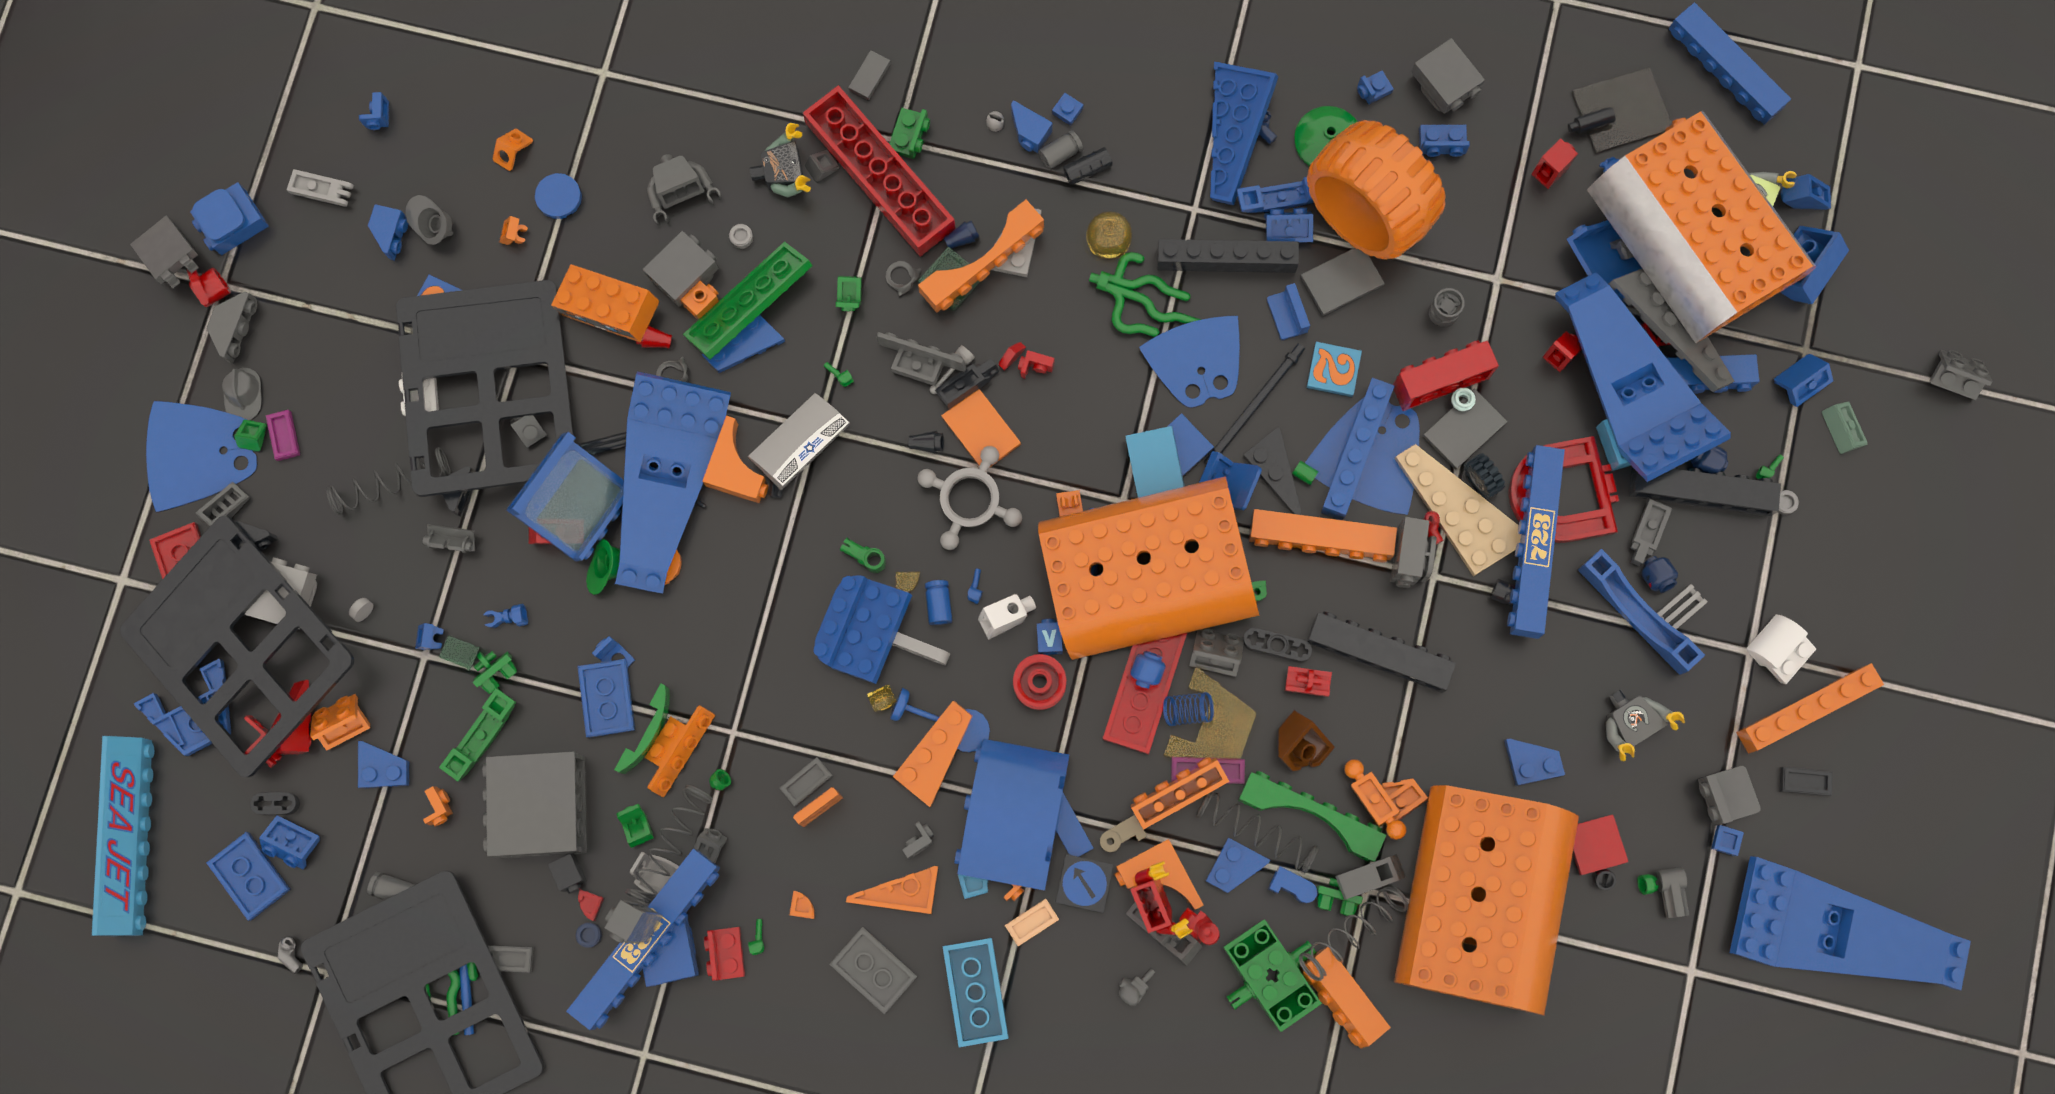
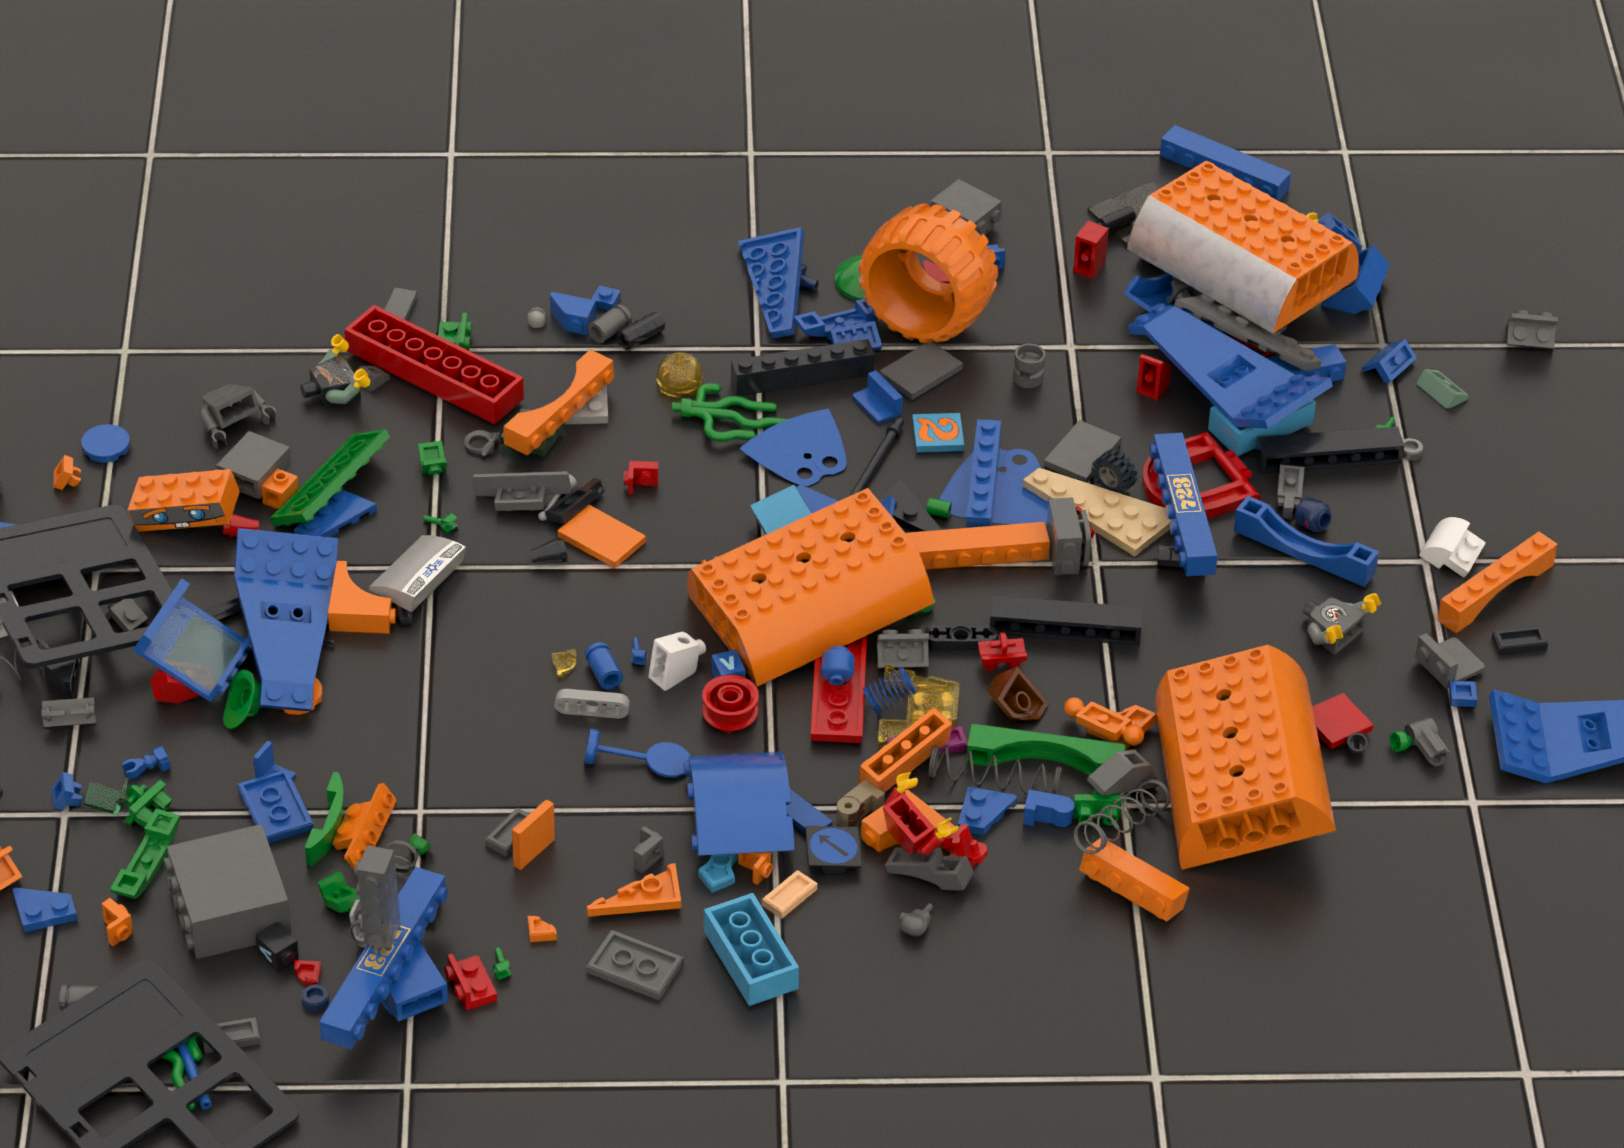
camera: 20 degrees left, 35 degrees down
(511, 144) = (47, 409): orange bracket -> none
(741, 236) = (306, 440): light grey tile -> none
(860, 627) = (530, 694): blue plate -> none
(863, 555) = (522, 645): green pin -> none
(881, 698) = (571, 748): clear yellow plate -> none
(928, 763) = (639, 782): orange wing -> none
(962, 235) = (534, 398): dark blue cone -> none
(989, 456) = (603, 564): light grey piece -> none
(1011, 355) = (613, 475): red tile -> none
(1286, 997) = (1049, 875): green slope -> none
(1445, 375) = (1047, 408): brick -> none
(1463, 392) = (1072, 424): light aqua plate -> none
(1694, 596) = (1360, 533): light grey tile -> none
(1711, 461) = (1323, 422): dark blue head -> none

